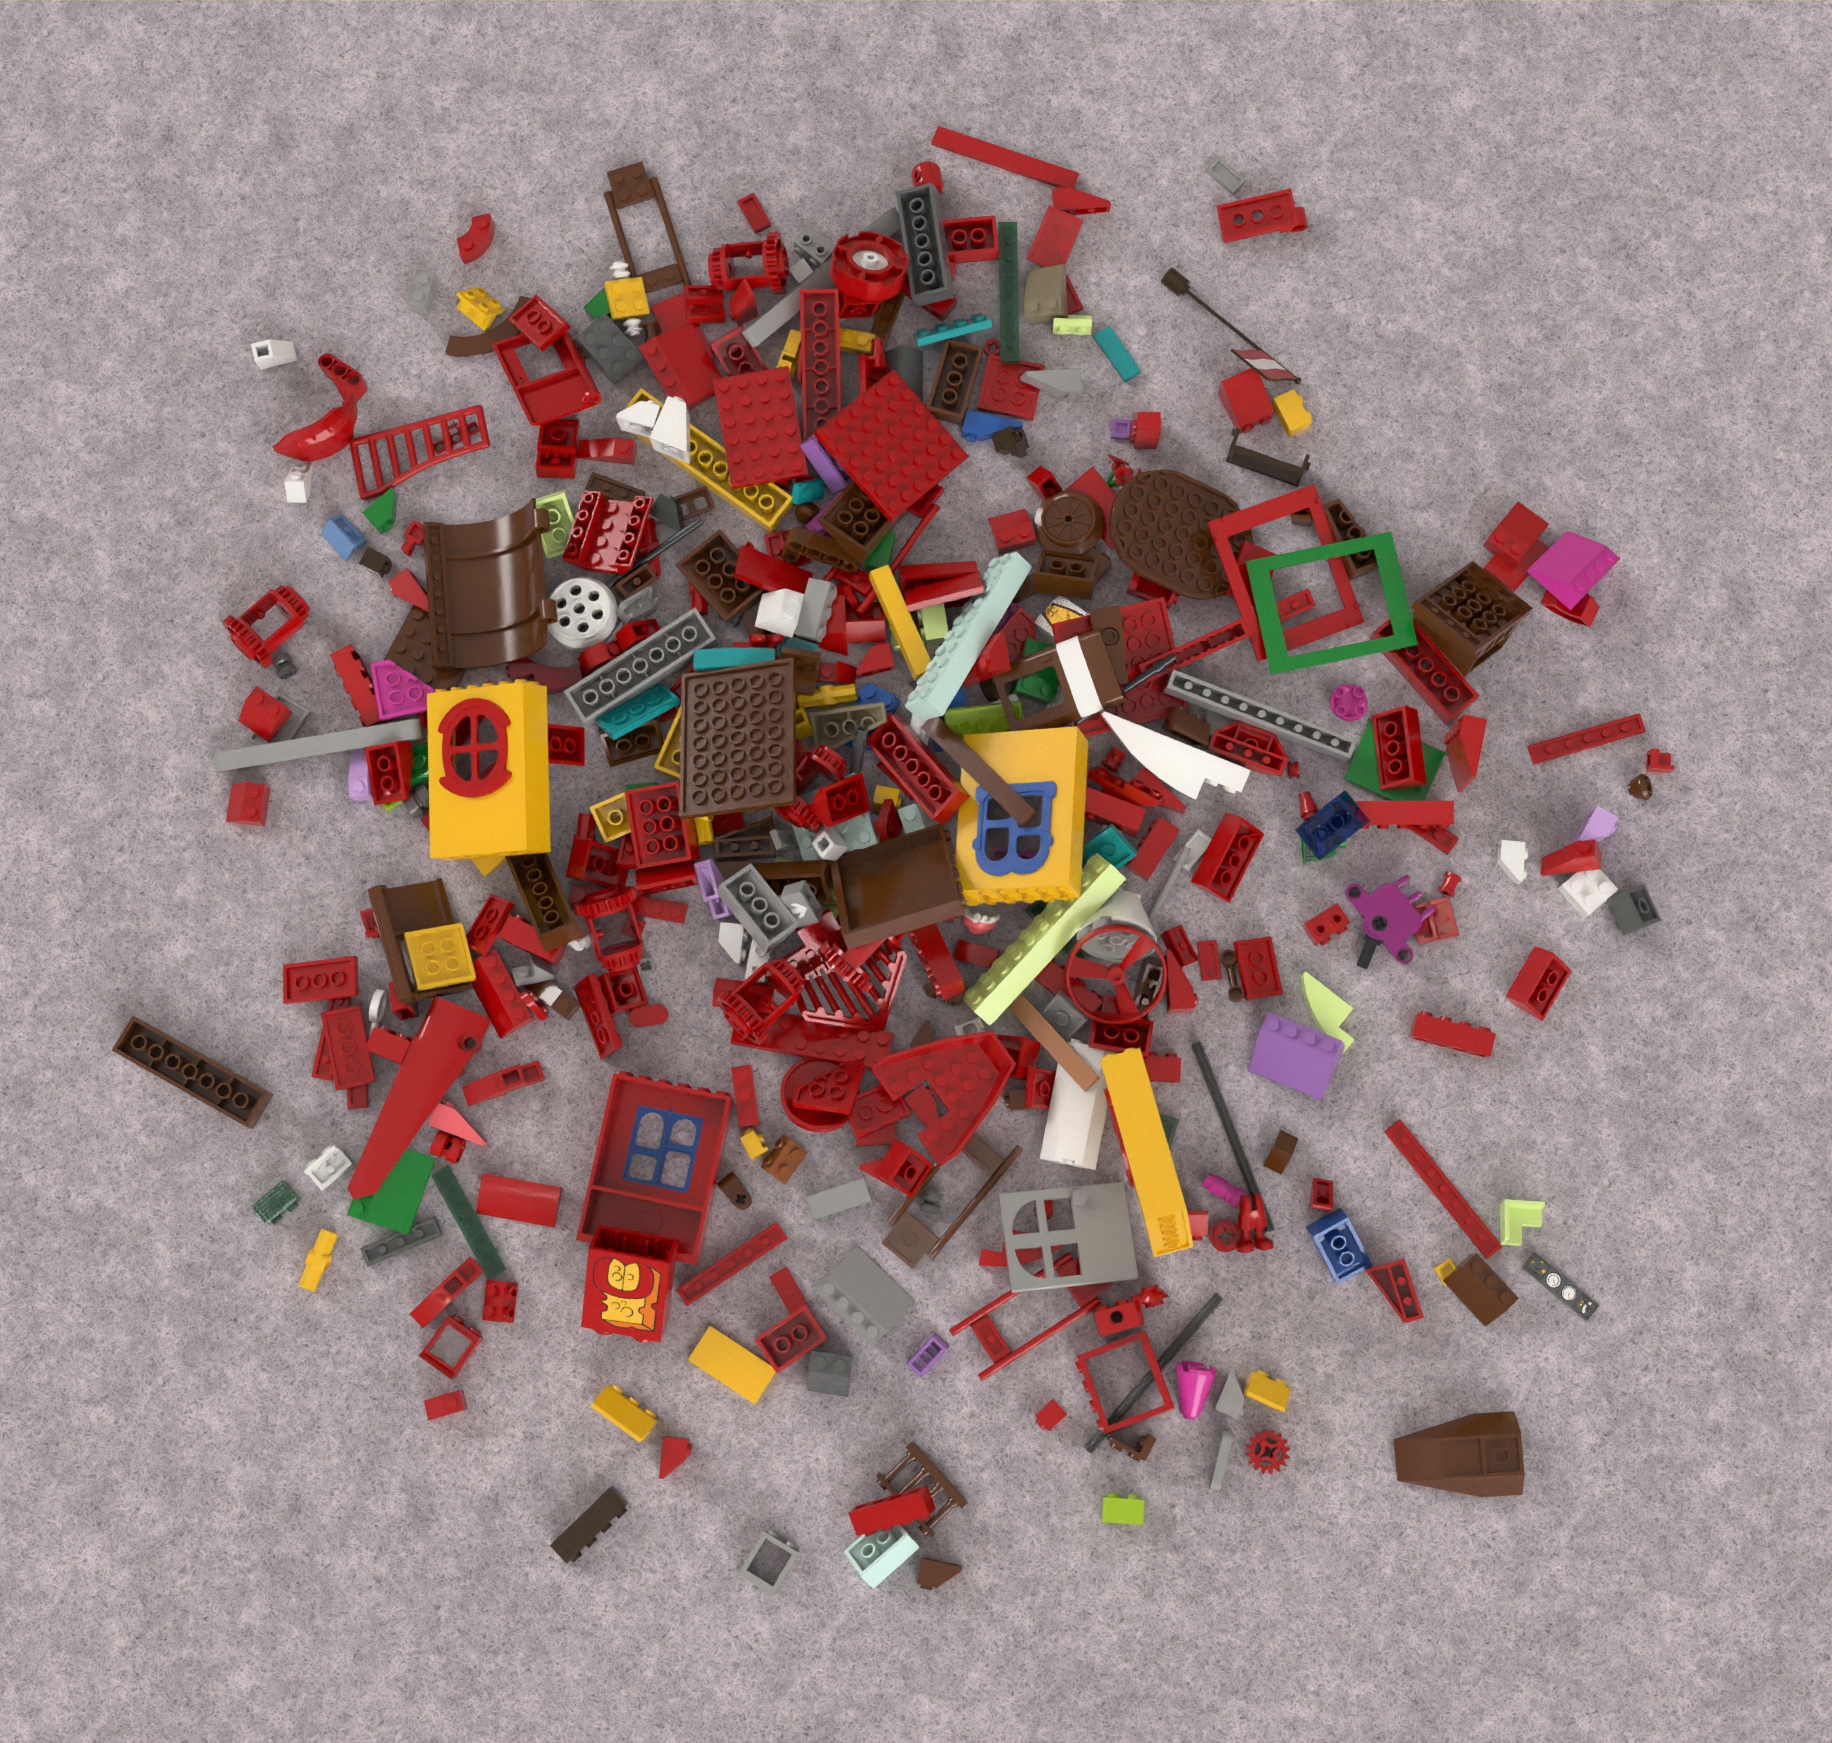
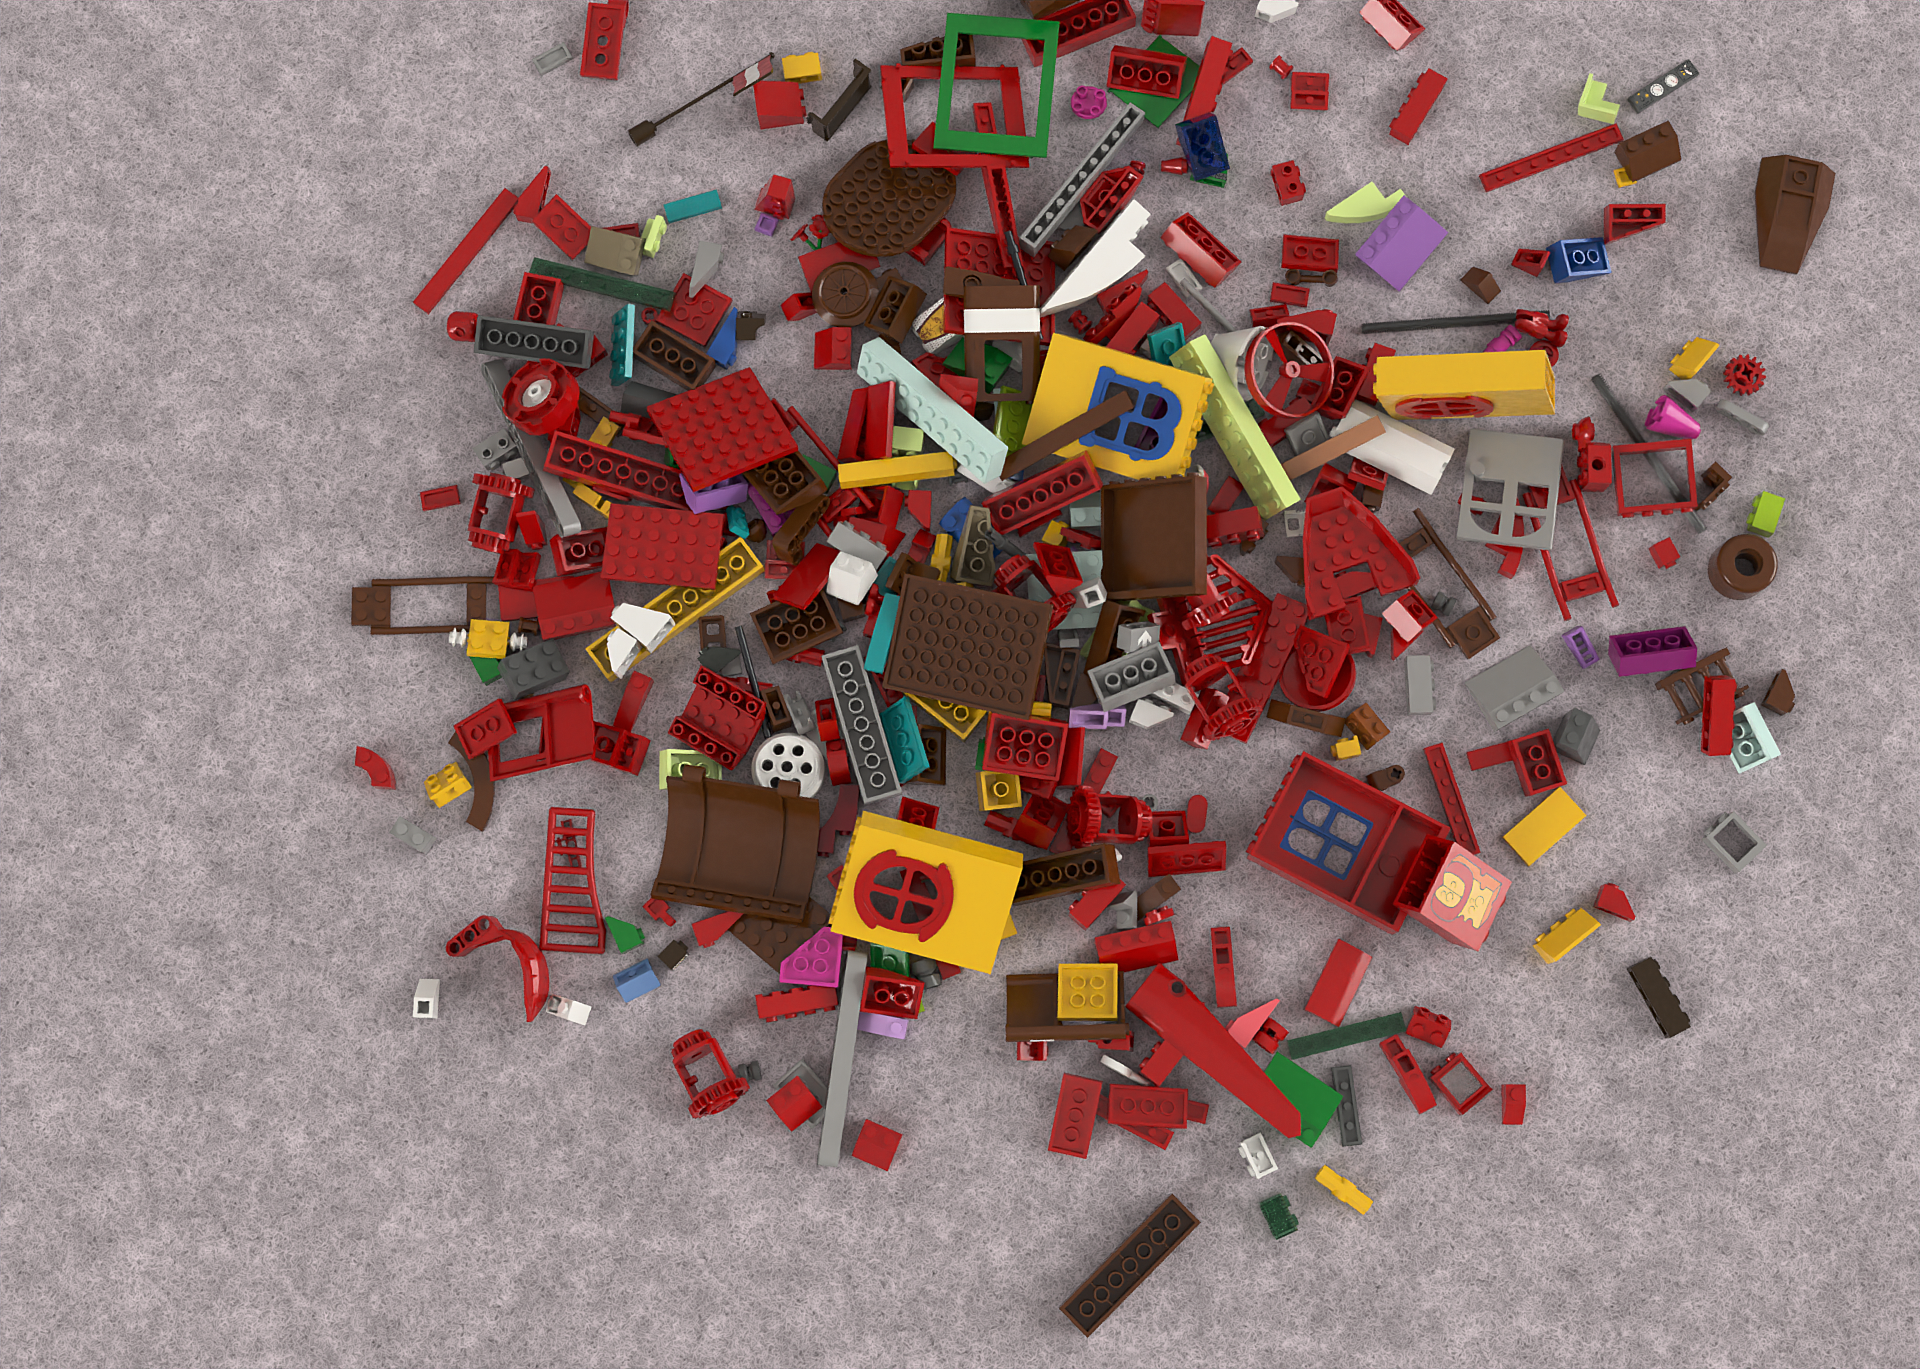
camera: 75 degrees left, 0 degrees up
(488, 924) = (1067, 938): red tile -> none
(612, 489) = (673, 706): reddish brown tile -> none
(745, 1096) = (1297, 742): red brick -> none
(769, 1096) = (1306, 718): none -> reddish brown slope
(940, 1426) = (1652, 651): none -> magenta brick
(1079, 1503) = (1726, 577): none -> reddish brown piece
(1398, 916) = (1299, 118): magenta piece -> none

